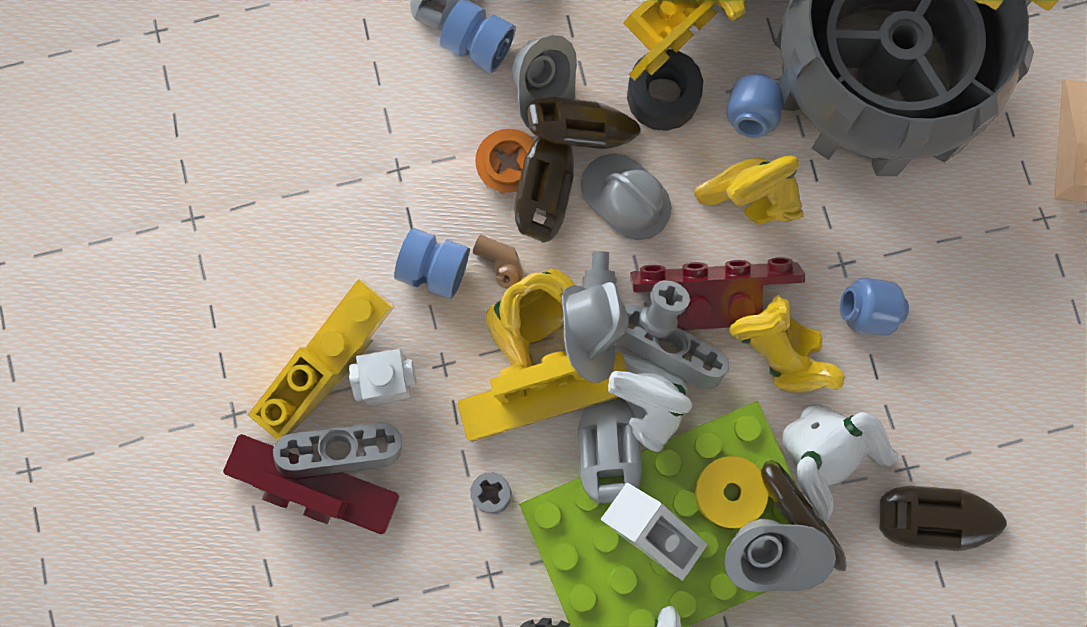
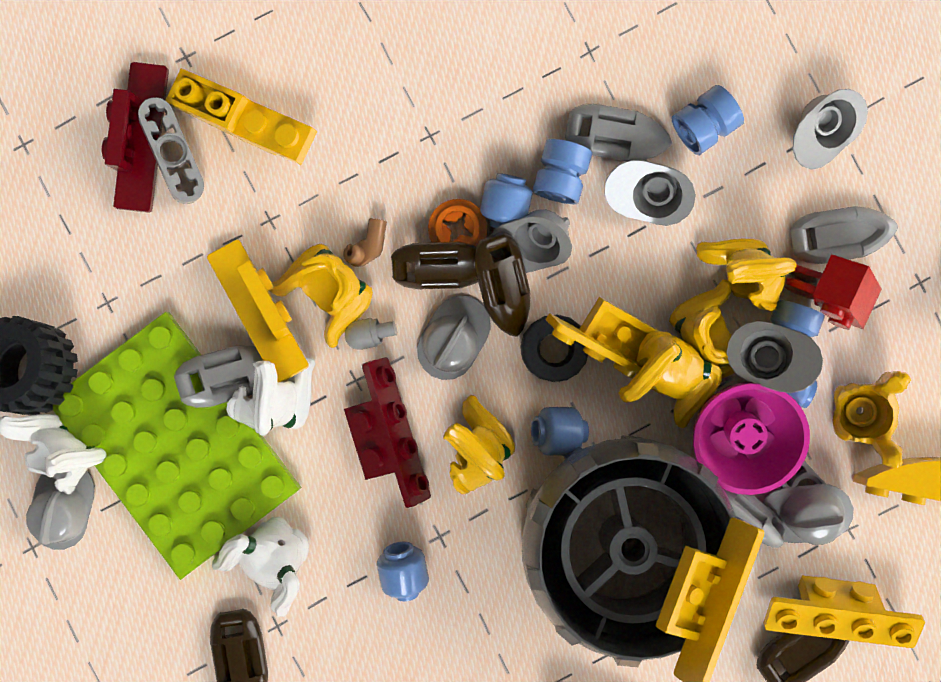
camera: 75 degrees right, 10 degrees up
(382, 377) = (238, 171): white brick -> none
(431, 263) = (347, 182): medium blue wheel -> none
(478, 492) = (156, 290): light grey bush -> none
(492, 101) = (505, 199): none -> medium blue head
(592, 327) = (314, 335): light grey piece -> none
(654, 531) = (160, 427): white slope -> none
(667, 302) = (361, 397): light grey bush -> none
(691, 370) = (334, 418): light grey beam -> none
(711, 497) = (195, 490): yellow piece -> none
(778, 557) = (161, 531): light grey piece -> none
(787, 349) = (350, 503): yellow hair -> none
(796, 507) = (205, 546): dark brown piece -> none

